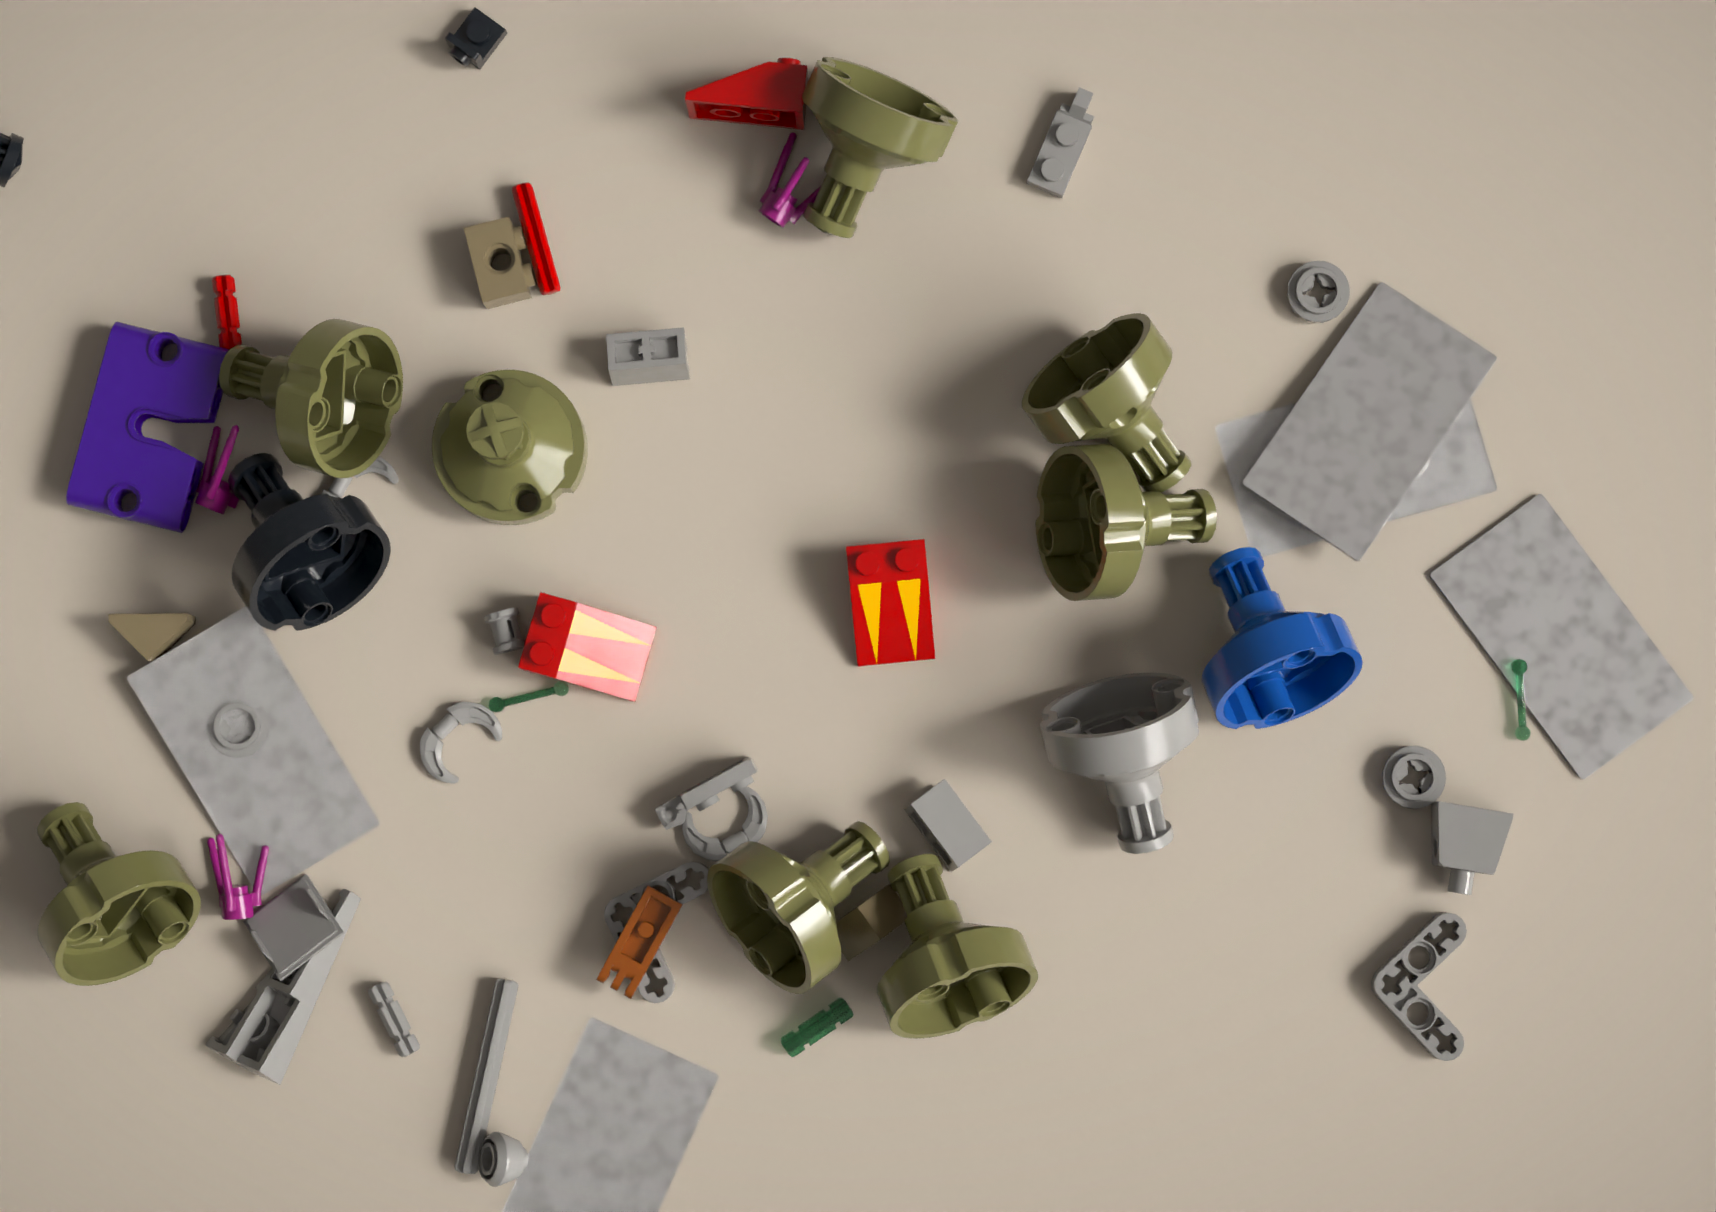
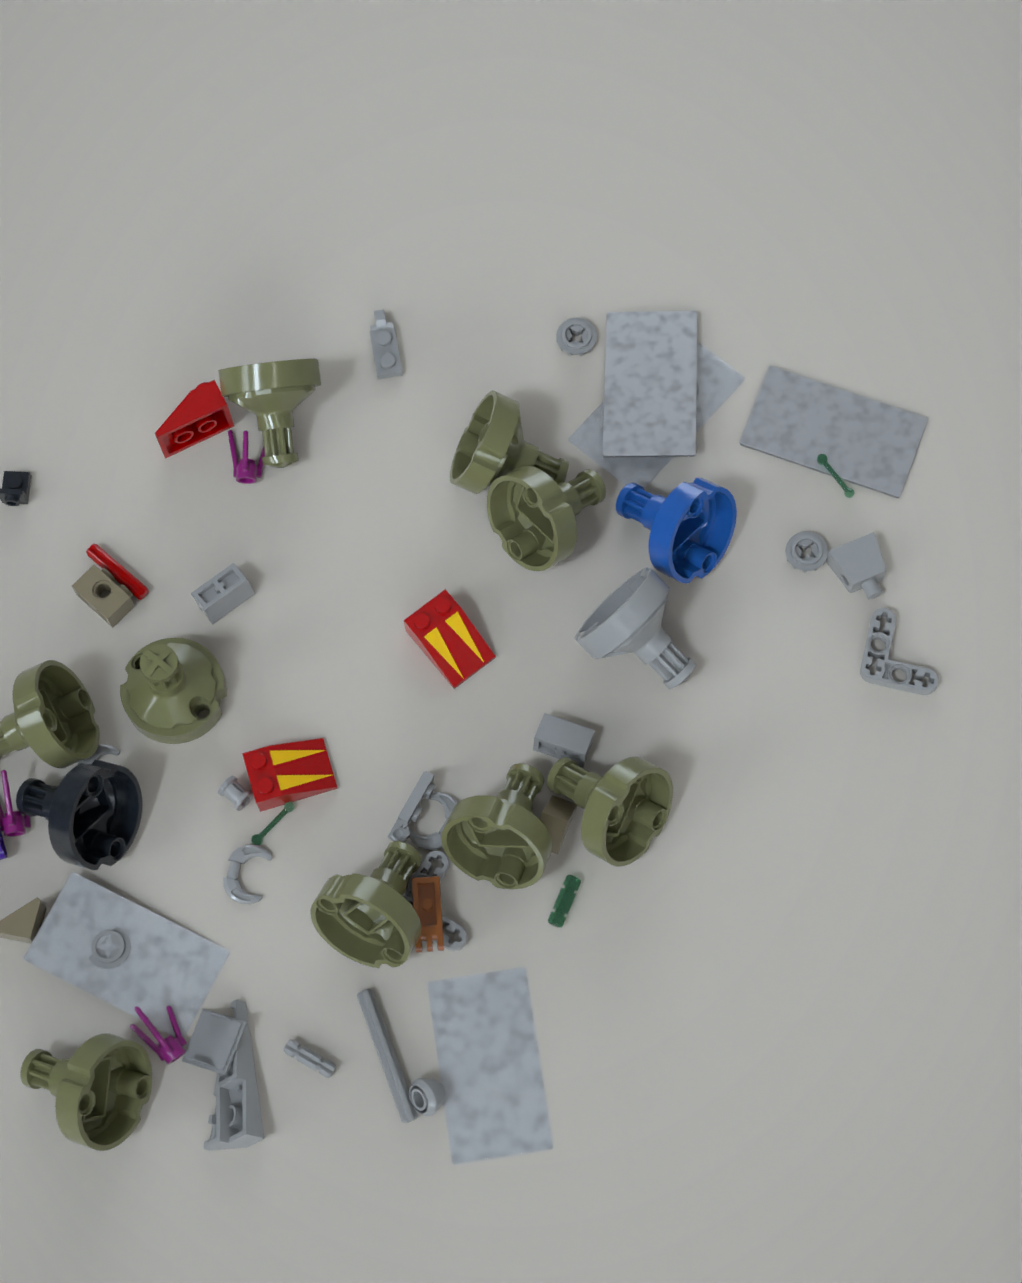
camera: 30 degrees left, 15 degrees down
(568, 902) = (369, 915): none -> olive piece

